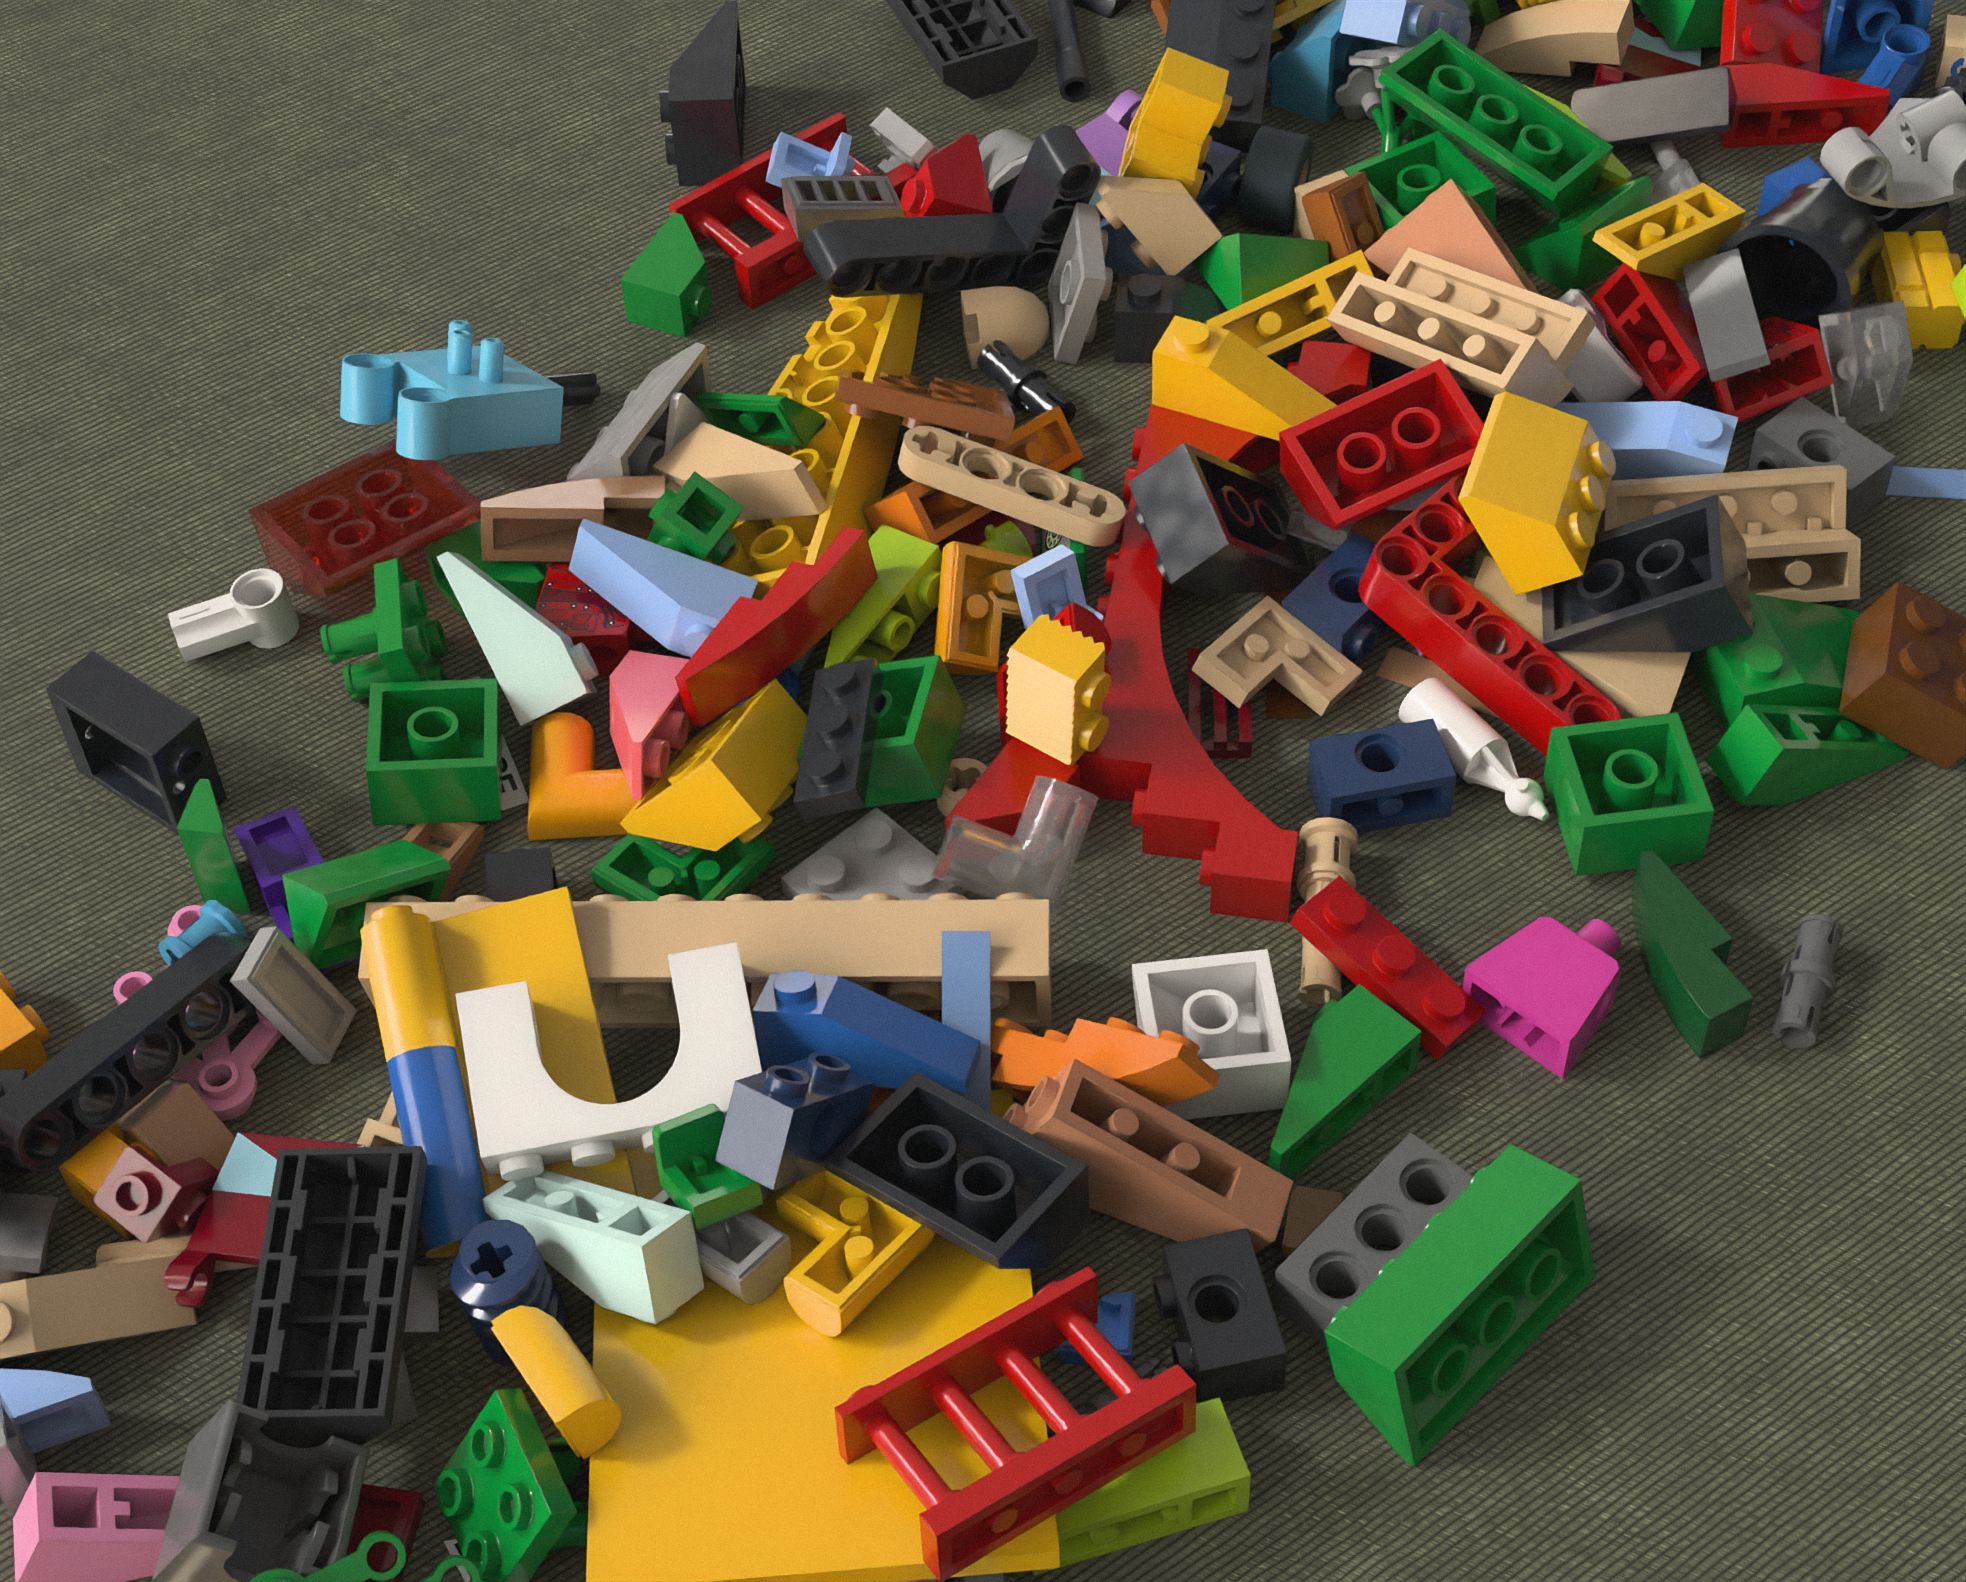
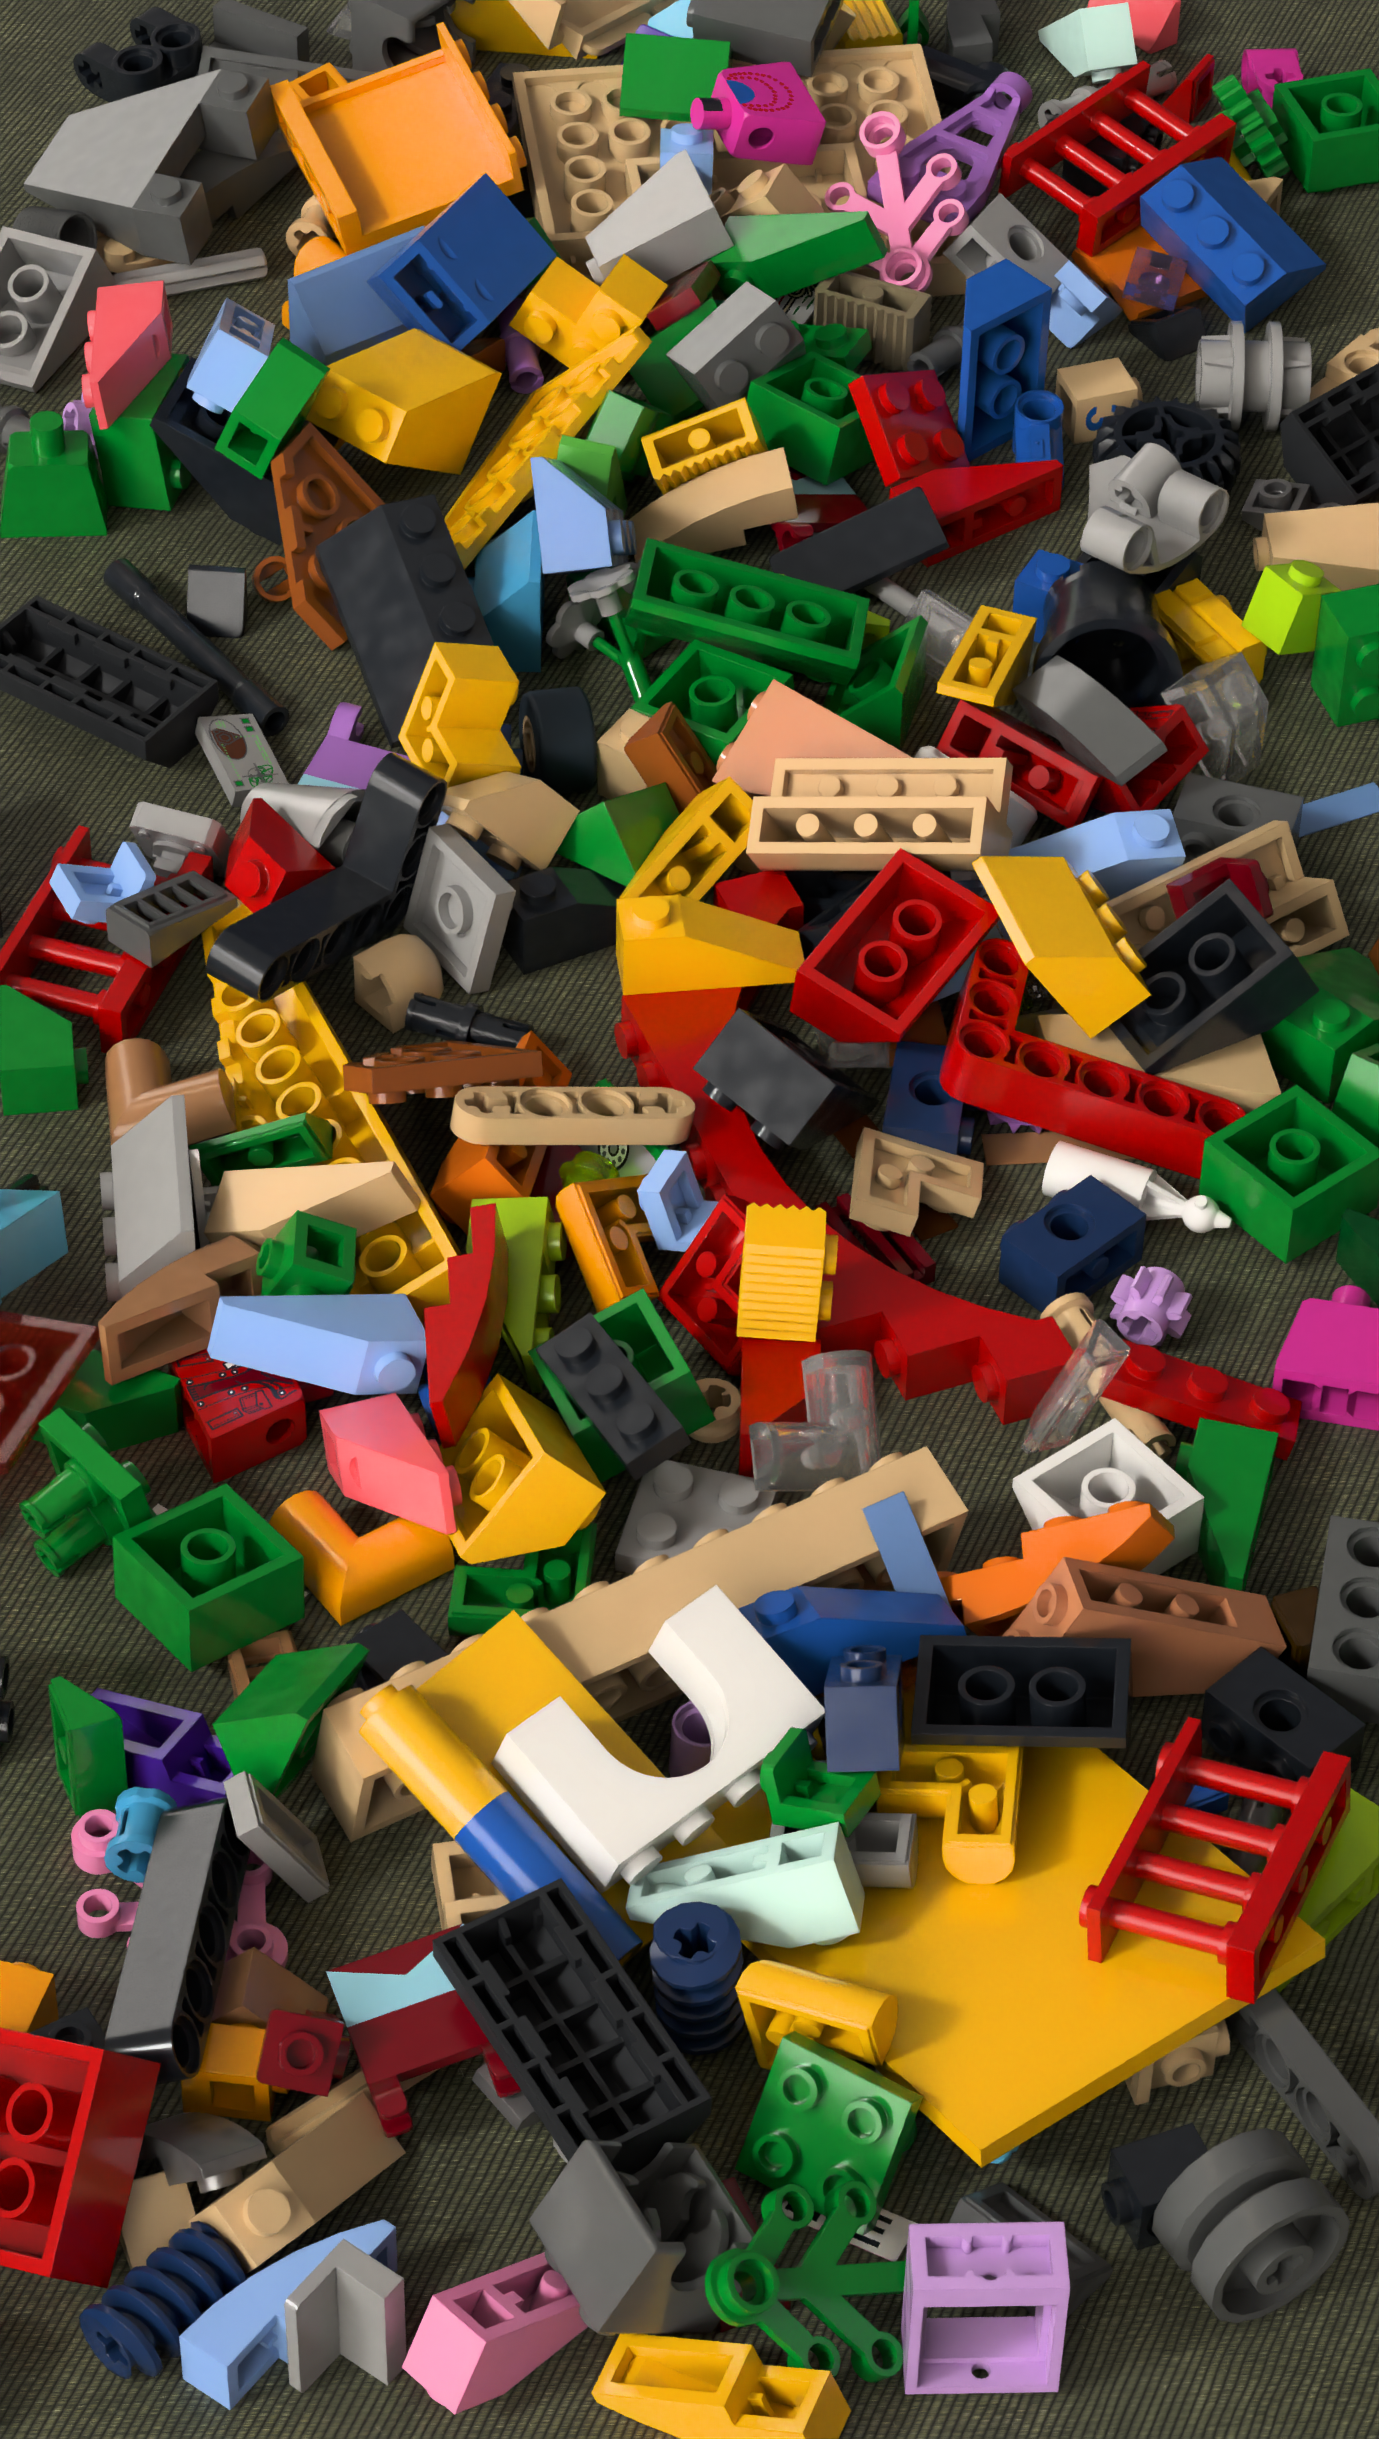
camera: 35 degrees left, 5 degrees down
(527, 653) = (223, 1441): light aqua slope -> none
(737, 349) = (141, 1081): none -> medium nougat brick
(1025, 101) = (238, 754): none -> light grey tile
(1262, 907) = (1076, 1389): none -> clear slope
(1408, 861) = (1150, 1306): none -> lavender gear
(1749, 504) = (1244, 873): none -> dark red bracket

